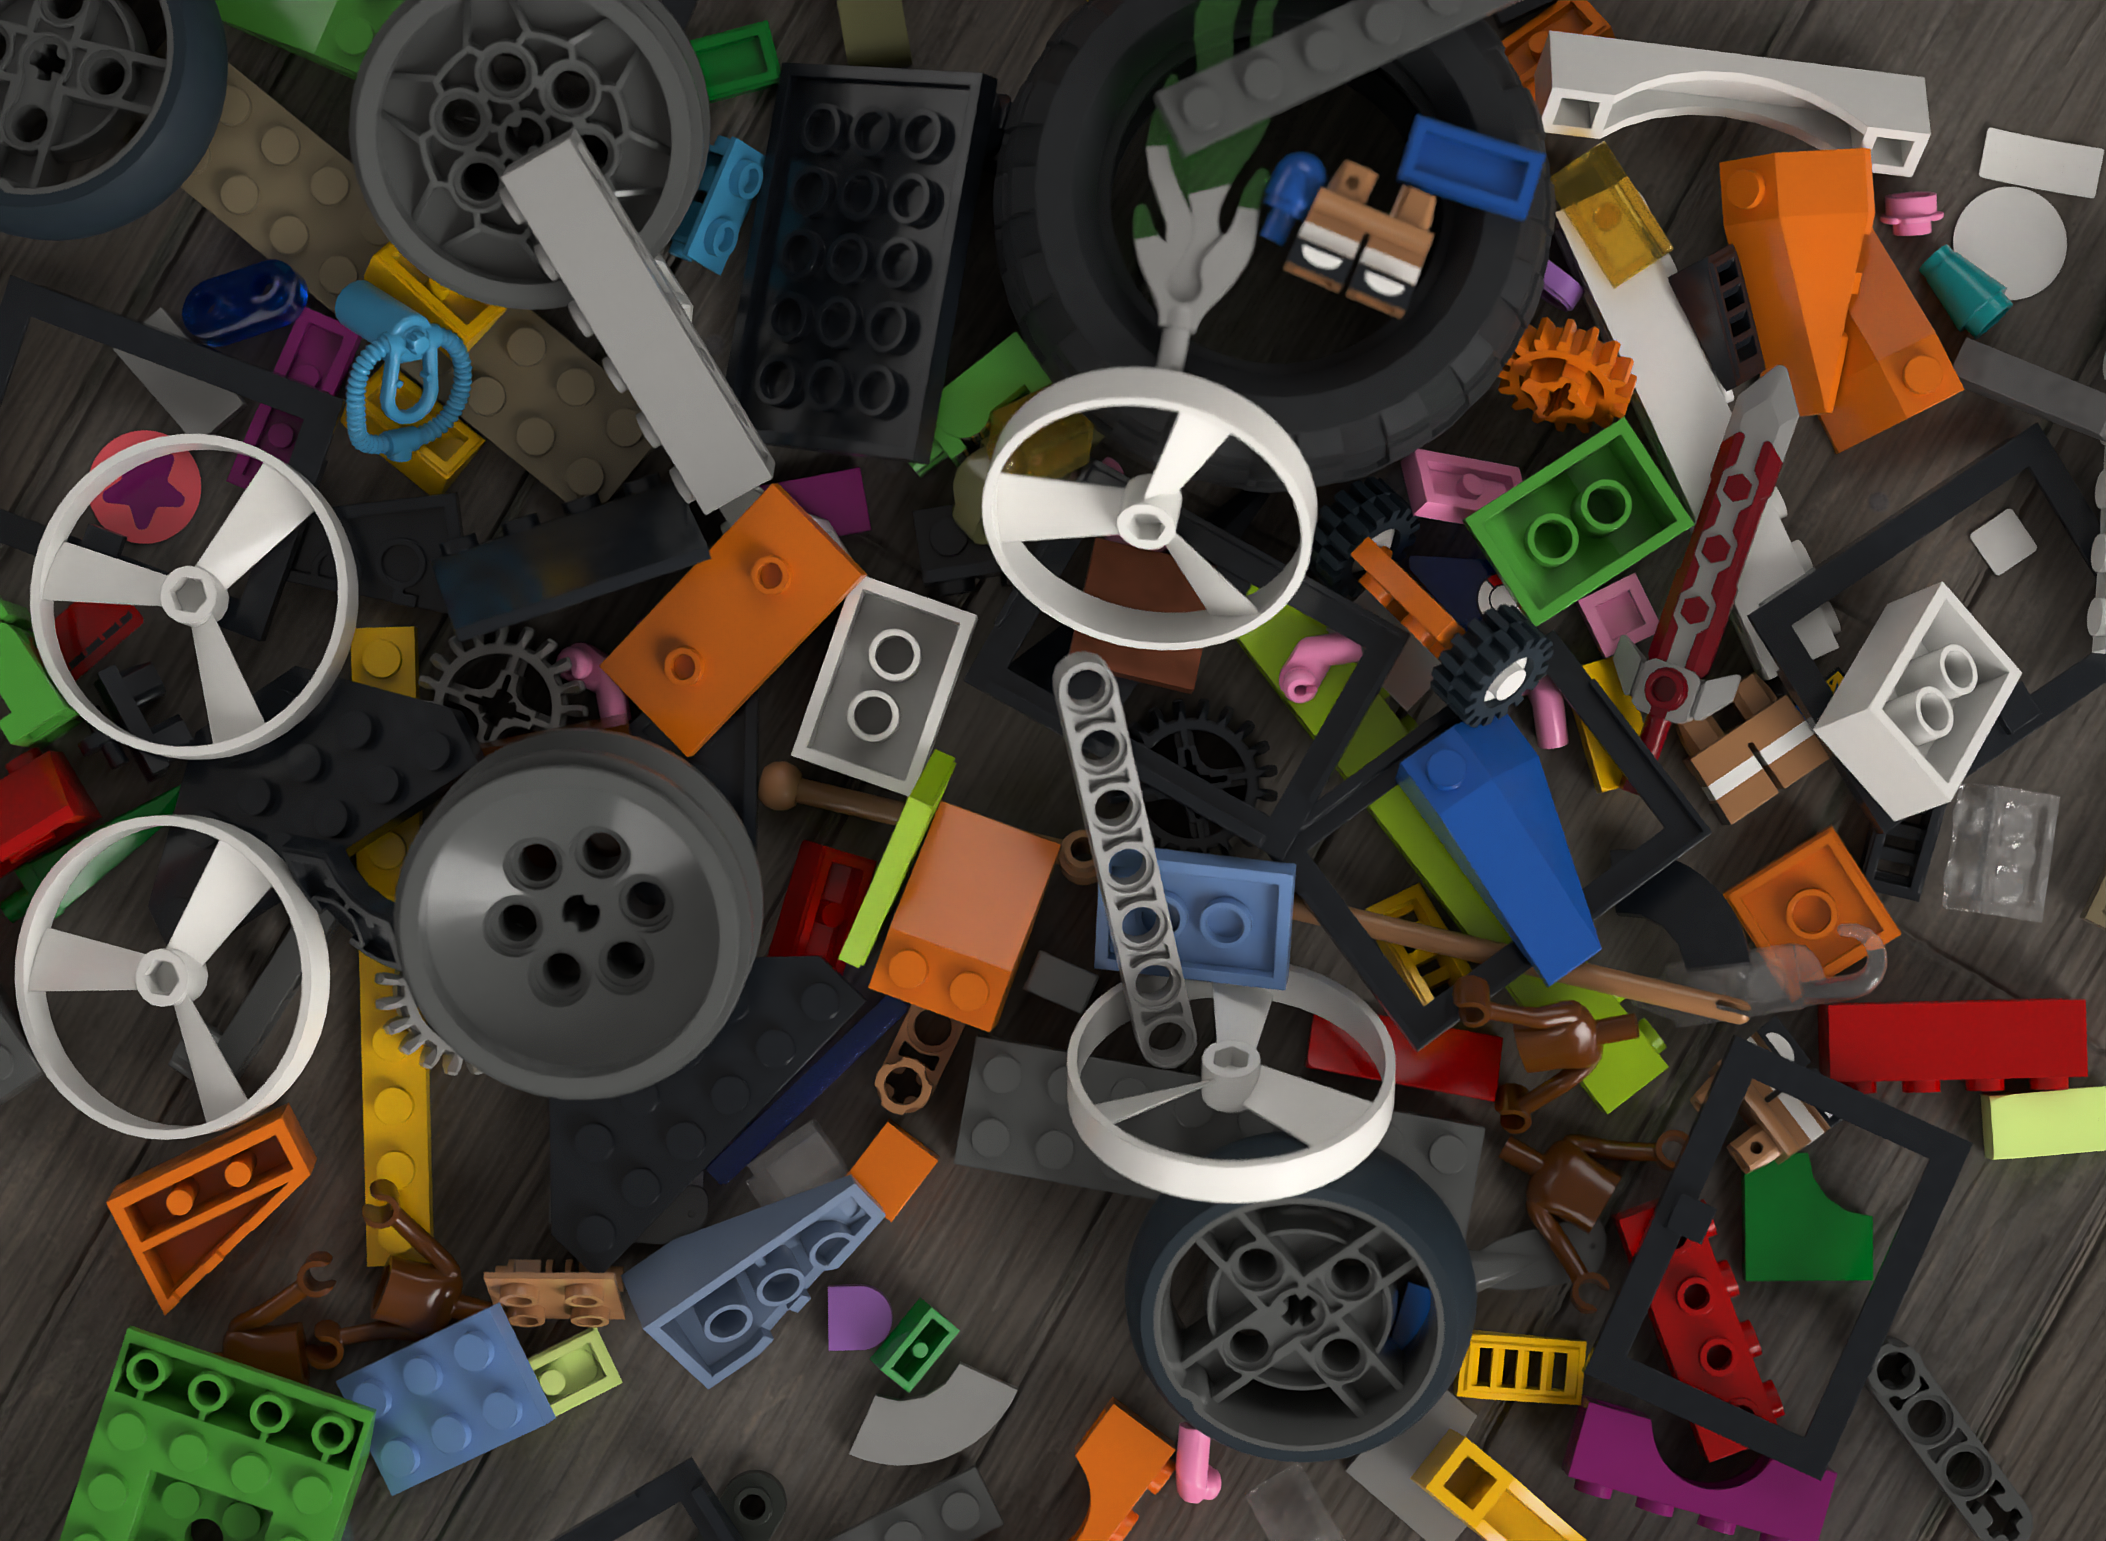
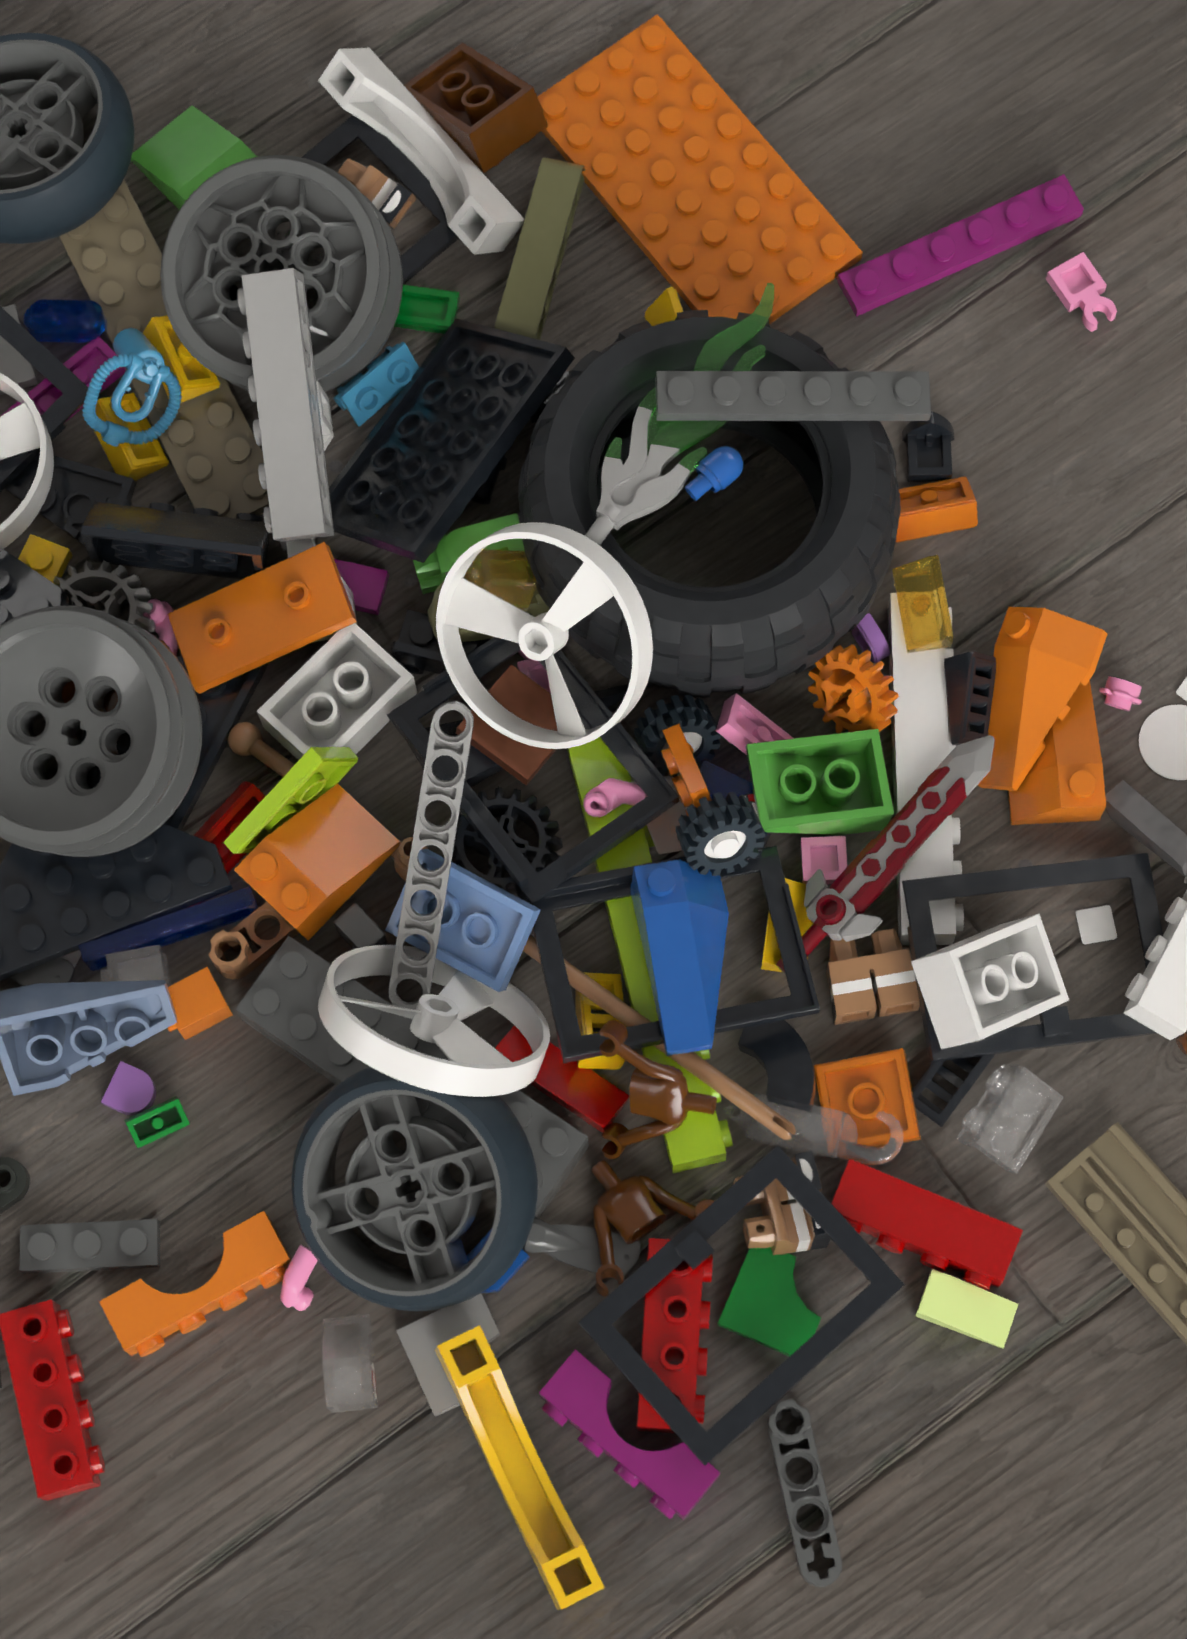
camera: 25 degrees right, 15 degrees down
(934, 1423) = (146, 1181): light grey tile -> none
(1393, 246) = (744, 518): medium nougat hips -> none
(1466, 1379) = (506, 1296): yellow slope -> none
(1470, 168) = (834, 502): blue tile -> none
(1548, 714) = (751, 899): bright pink arm -> none
(1604, 84) = (967, 532): white arch -> none
(1965, 291) = (1135, 755): teal cone -> none

